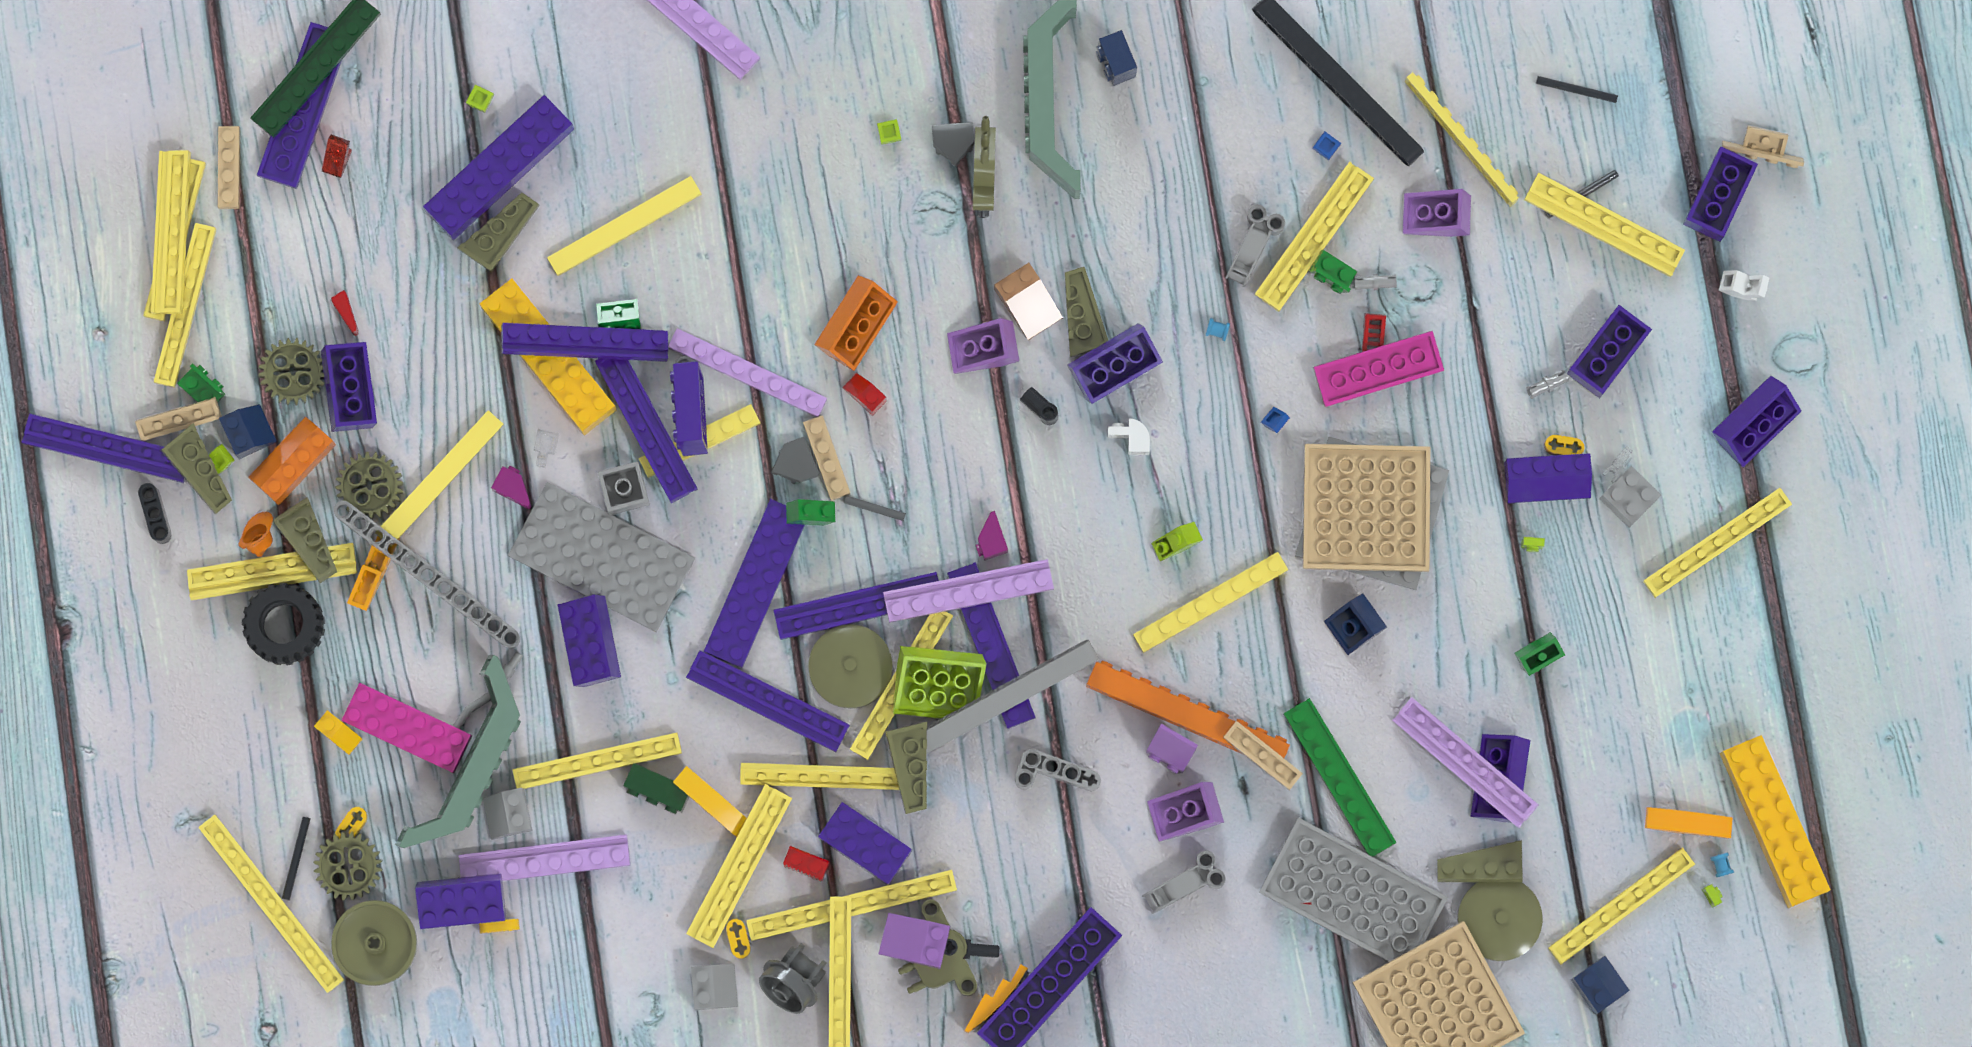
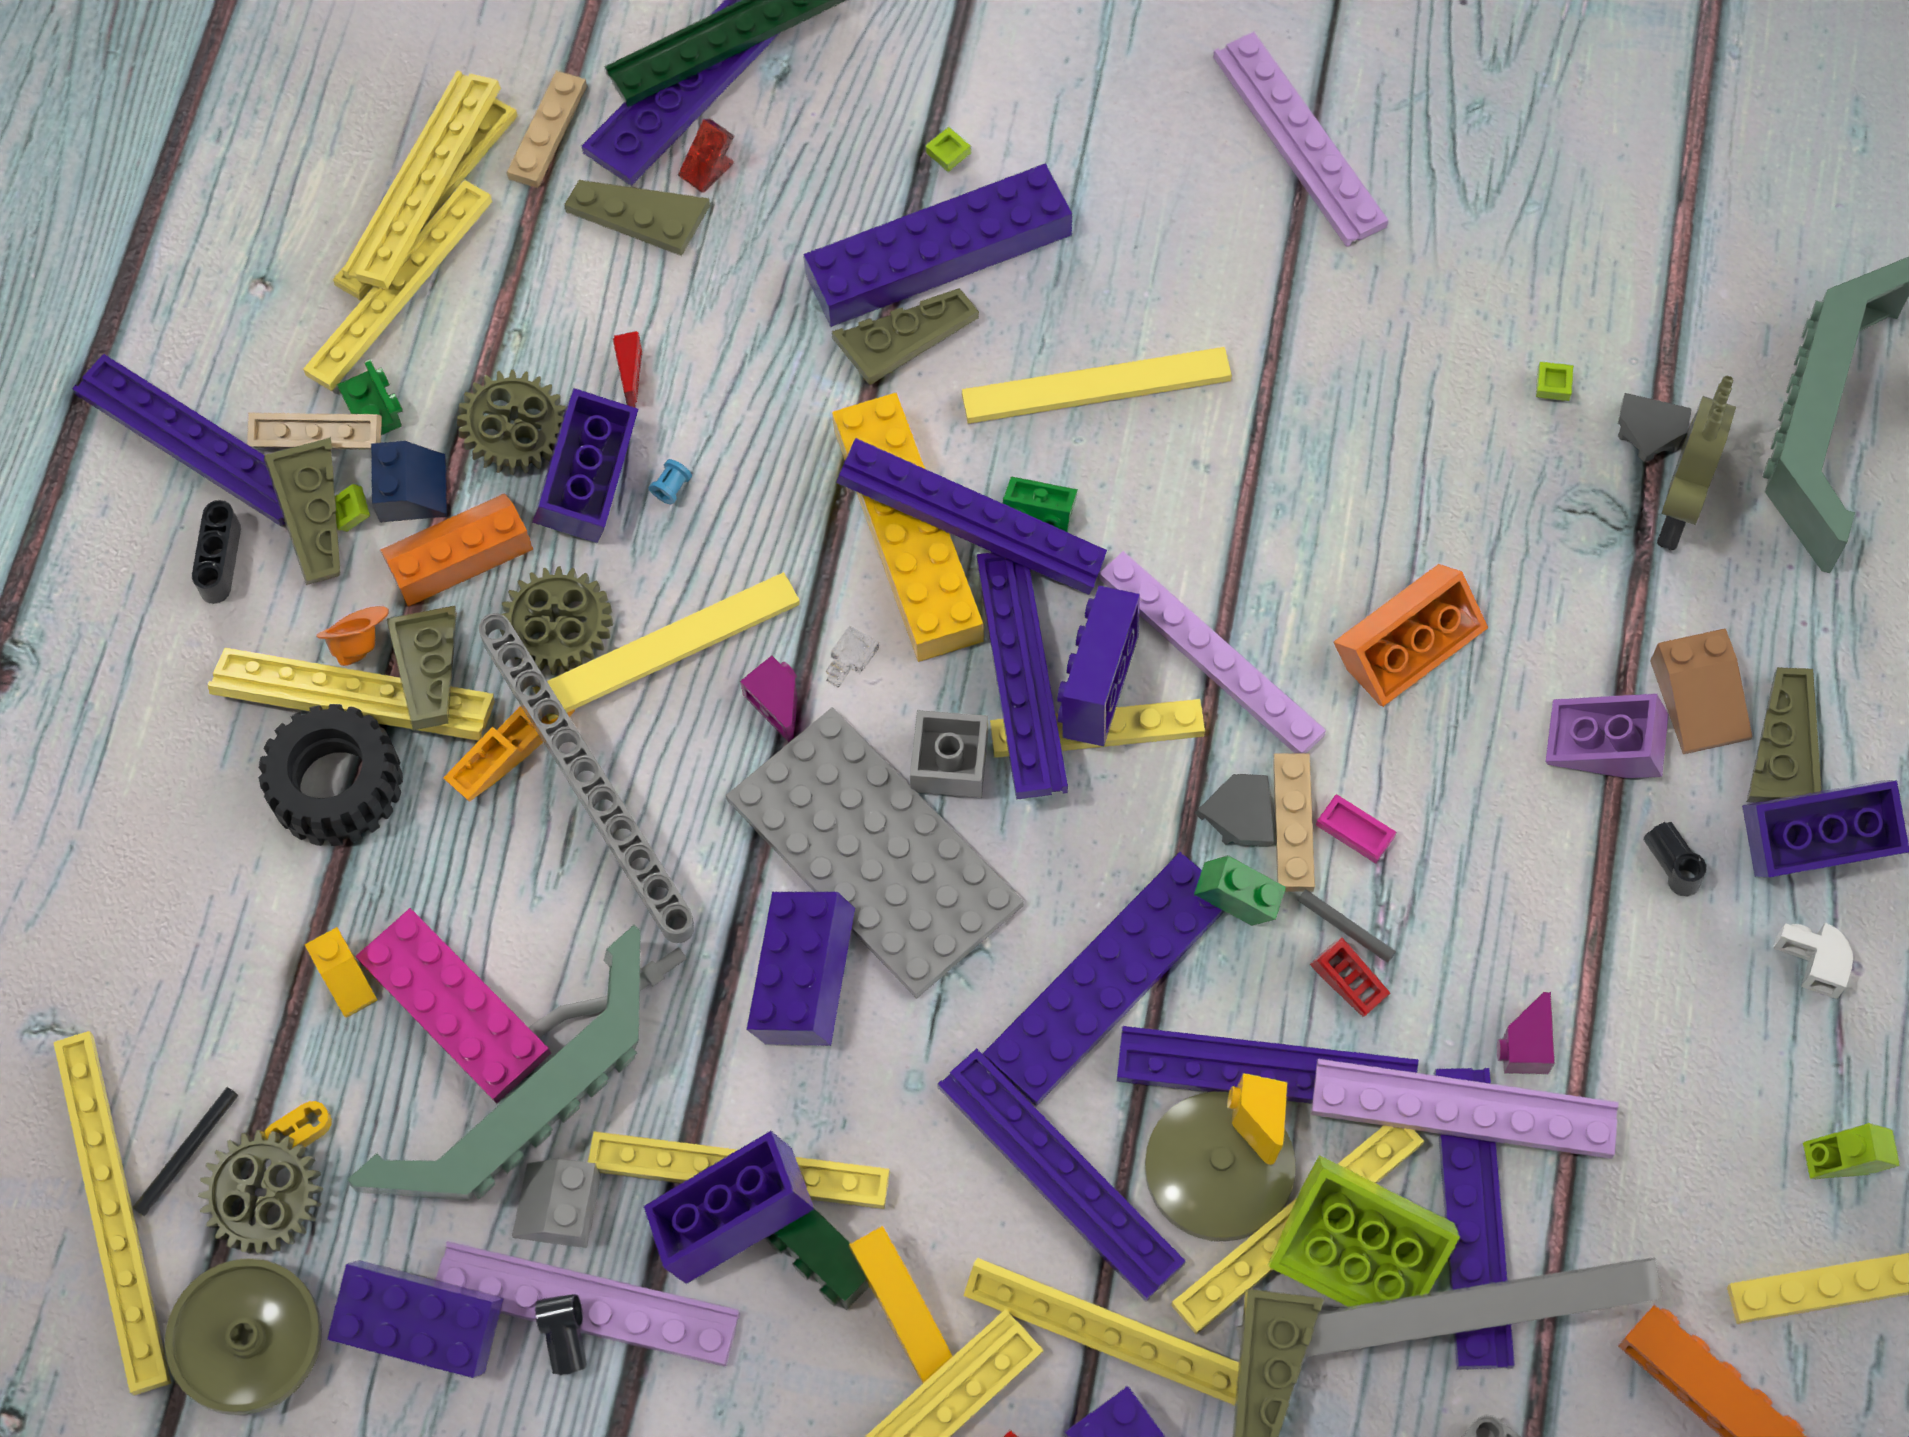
camera: 25 degrees right, 15 degrees down
(312, 205) = (644, 214): none -> olive wing
(400, 376) = (670, 481): none -> dark azure bush
(501, 926) = (463, 1387): yellow beam -> none
(538, 876) = (561, 1322): none -> black piece
(602, 785) = (728, 1207): none -> dark purple brick
(862, 449) = (1356, 828): none -> dark pink tile
(862, 633) = (1260, 1114): none -> yellow slope
(865, 393) = (1392, 745): red slope -> none
(882, 543) = (1341, 986): none -> red slope

